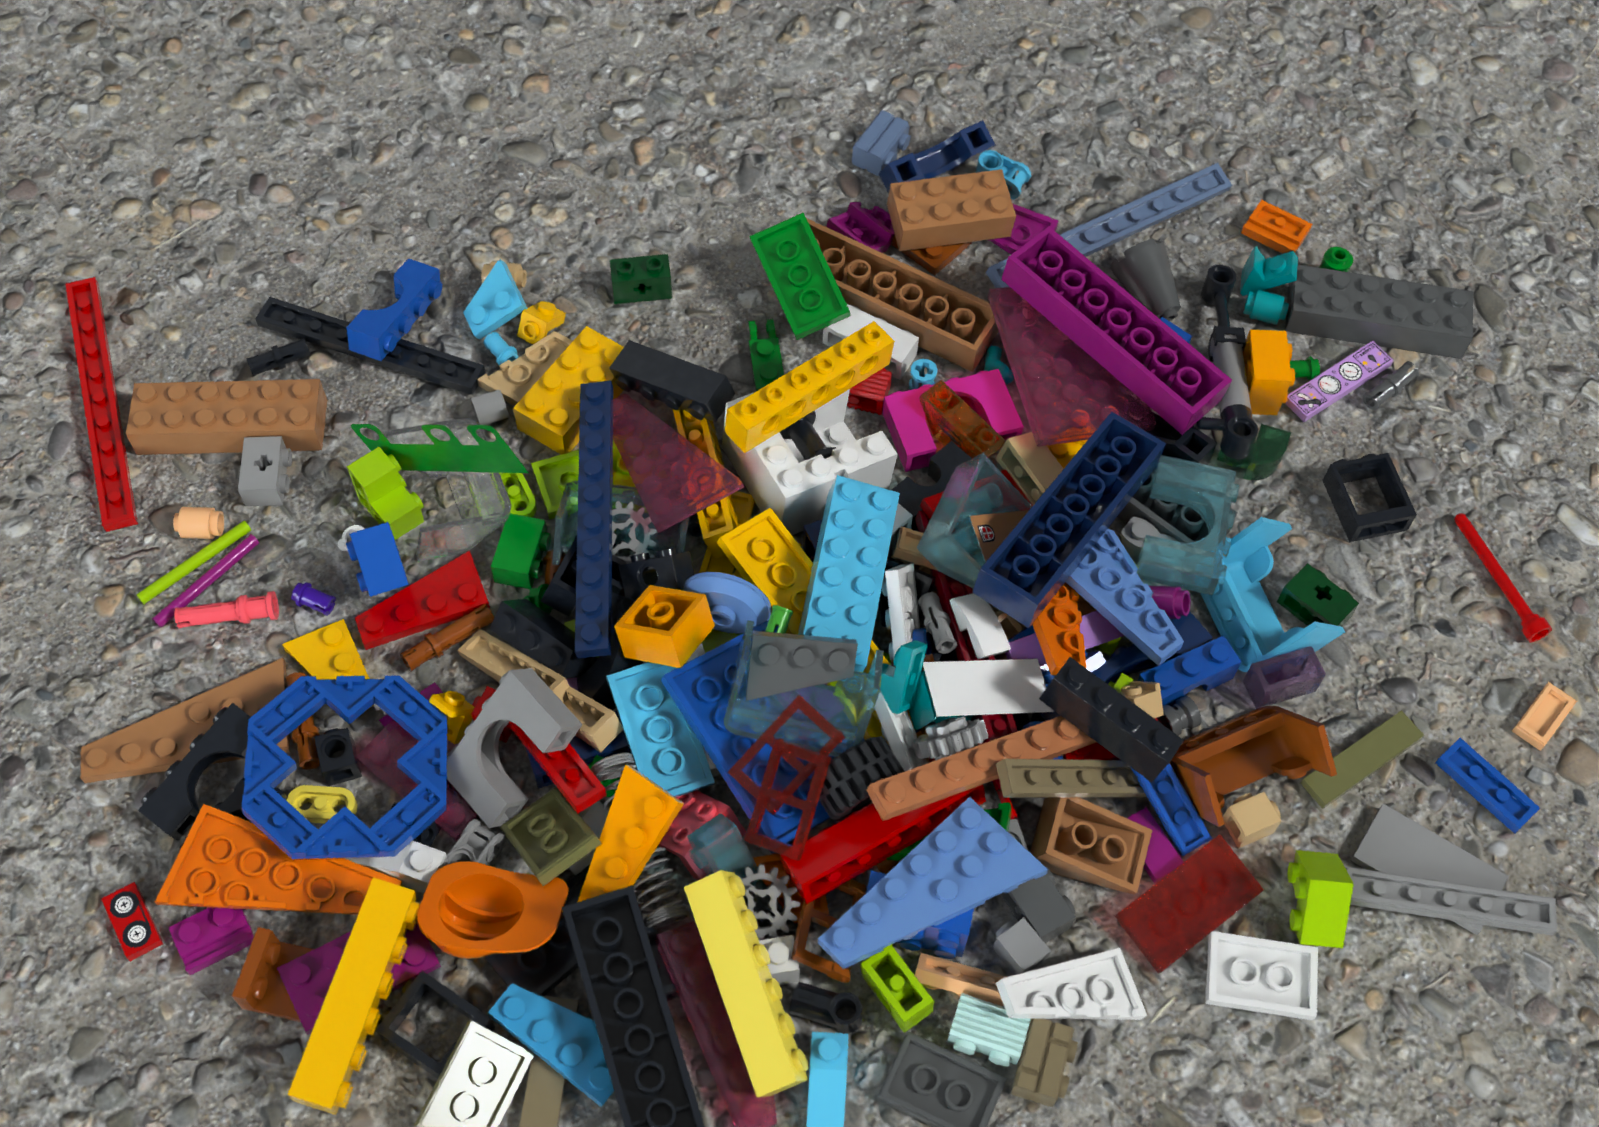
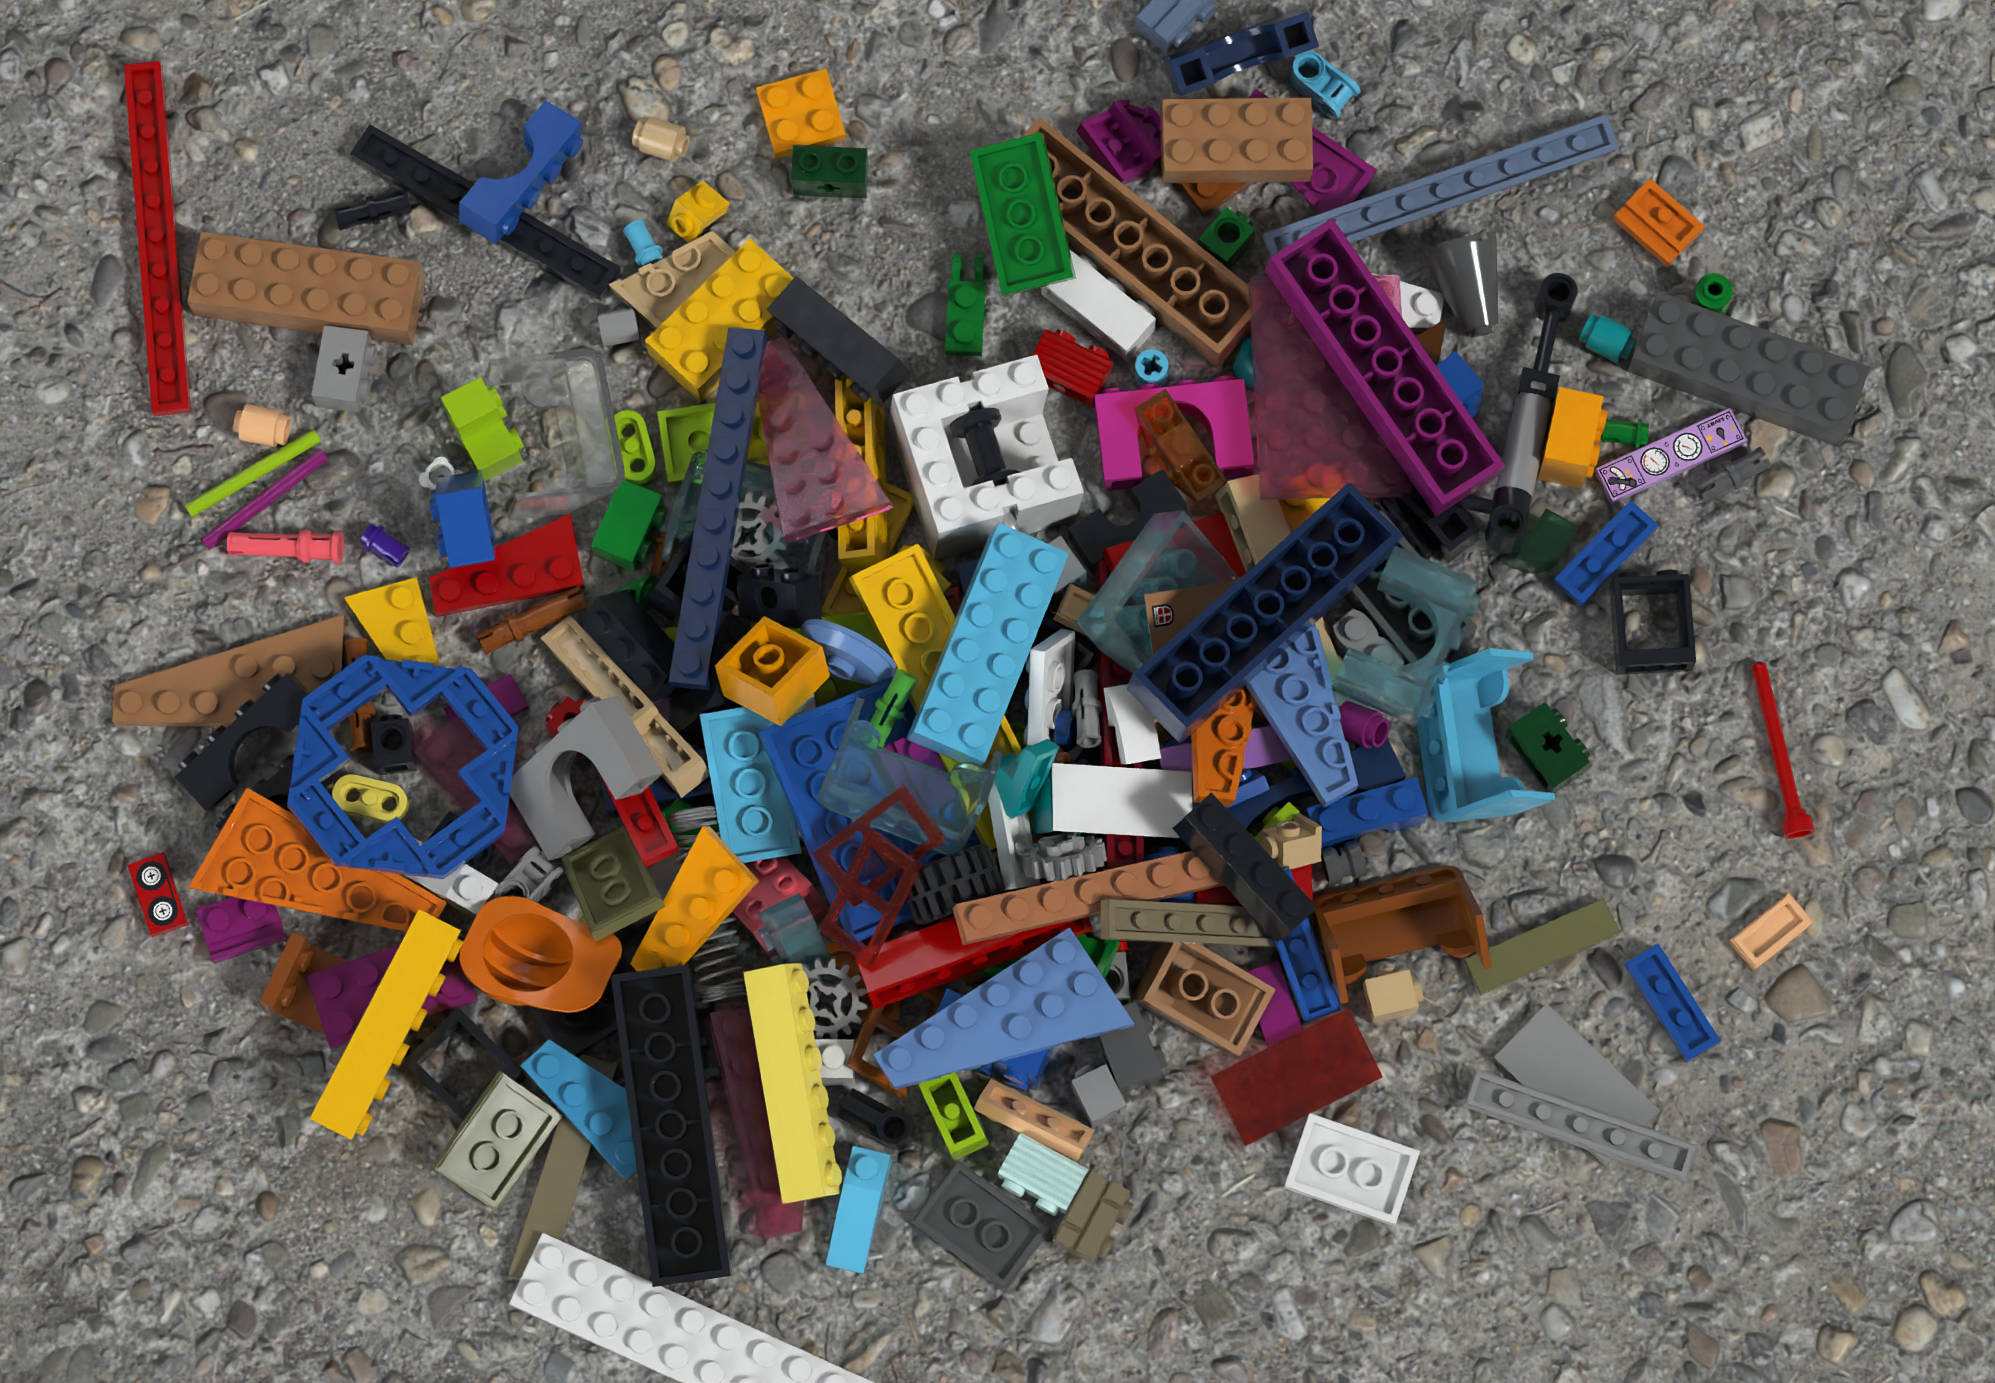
camera: 15 degrees right, 15 degrees up
(448, 455) = (558, 407): green piece -> none
(457, 712) = (530, 719): yellow bracket -> none
(494, 302) = (644, 178): medium azure wing -> none
(607, 241) = (800, 112): none -> light orange plate
(796, 661) = (907, 746): dark grey wing -> none
(808, 386) = (993, 395): yellow brick -> none
(961, 275) = (1228, 222): none -> green brick
(1075, 989) = (1146, 1150): white wing -> none
(1267, 273) = (1623, 292): teal slope -> none
(1284, 677) = (1475, 837): clear purple brick -> none
(1314, 454) = (1605, 553): none -> blue plate
(1323, 898) = (1436, 1096): lime brick -> none

